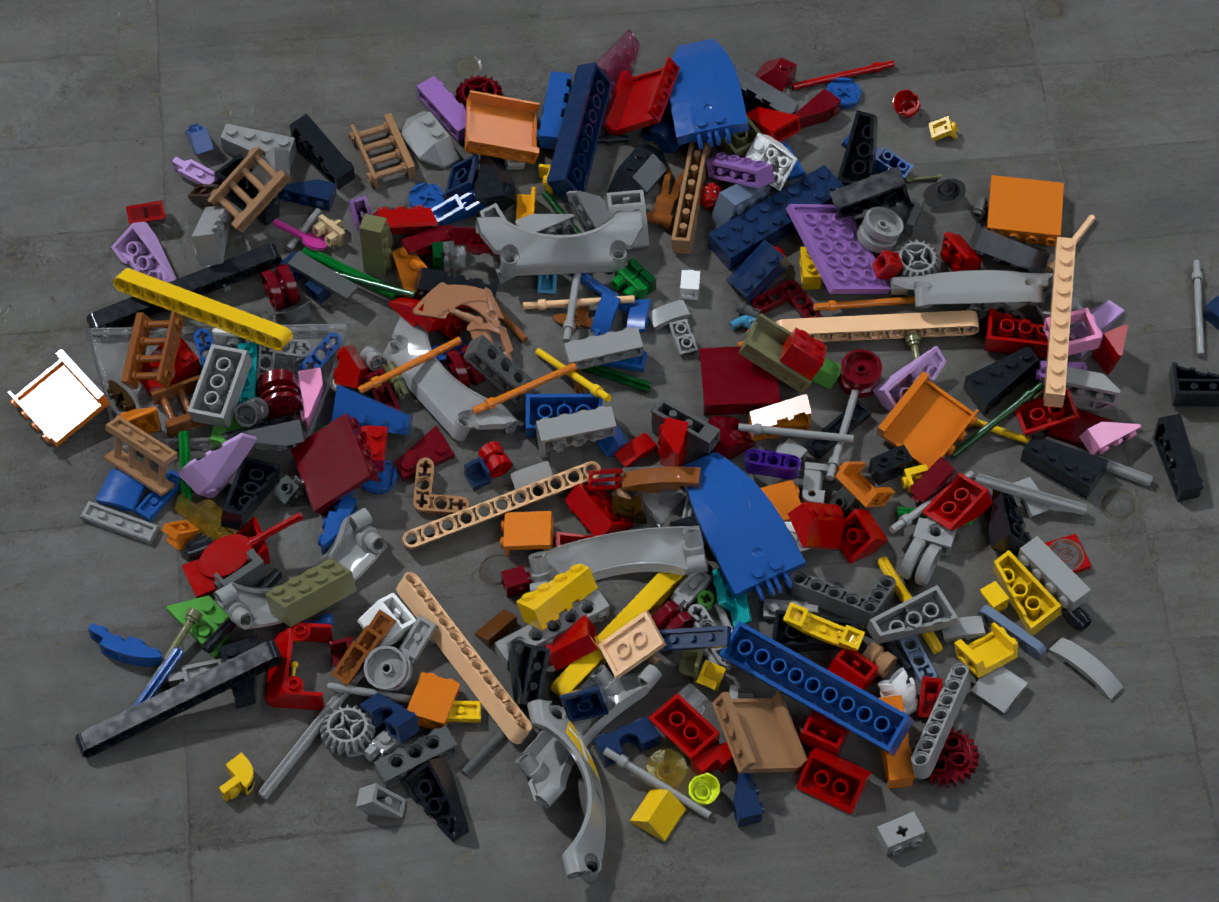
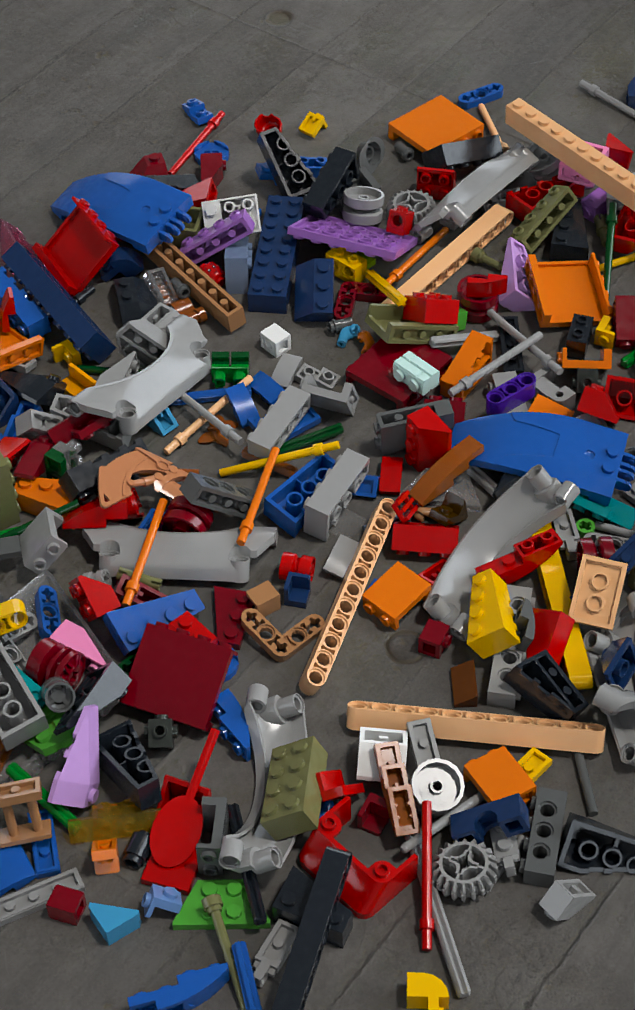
camera: 45 degrees left, 10 degrees down
(127, 542) = (66, 904): none -> dark red panel
(138, 576) = (114, 921): none -> dark azure slope
(176, 588) = (161, 897): none -> medium blue bracket
(291, 738) = (426, 923): none -> red bar
(338, 613) = (333, 786): none -> red panel
(357, 308) = (40, 541): none -> light grey panel
(450, 461) = (265, 598): none -> medium nougat panel
(457, 215) = (35, 423): none -> light grey brick
(537, 112) = (7, 308): none -> red slope
(567, 620) = (526, 624): none -> dark grey slope
(630, 582) = (526, 556): none -> red slope
(668, 163) = (160, 273): none -> clear slope
(668, 369) = (339, 402): none -> light grey panel
(674, 191) = (182, 290): none -> dark grey pin
(733, 392) = (416, 373): none -> light aqua brick
(802, 309) = (385, 287): none -> yellow axle
(813, 397) = (457, 339): none -> light grey axle
(866, 372) = (489, 287): none -> red slope
(878, 47) = (196, 111): none -> blue slope
(985, 352) = (544, 217): none -> olive brick
(1115, 216) = (471, 100): none -> blue beam

